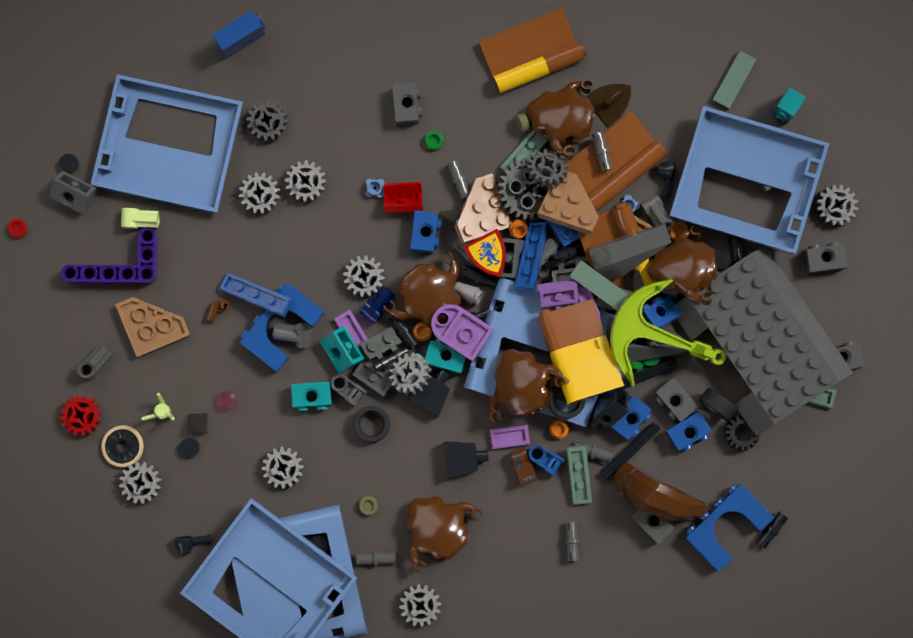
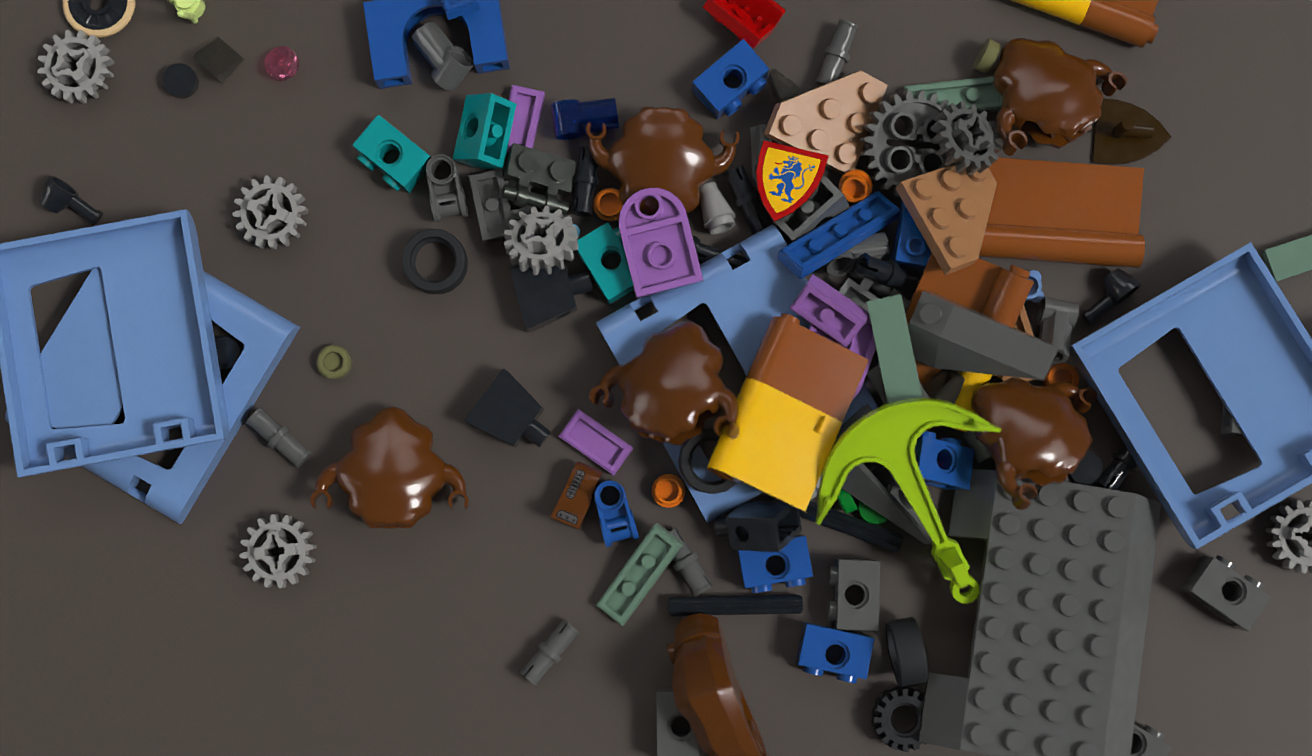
camera: 40 degrees right, 0 degrees up
(372, 274) = (588, 59): light grey gear -> none
(602, 151) = (1057, 184): dark grey pin -> none

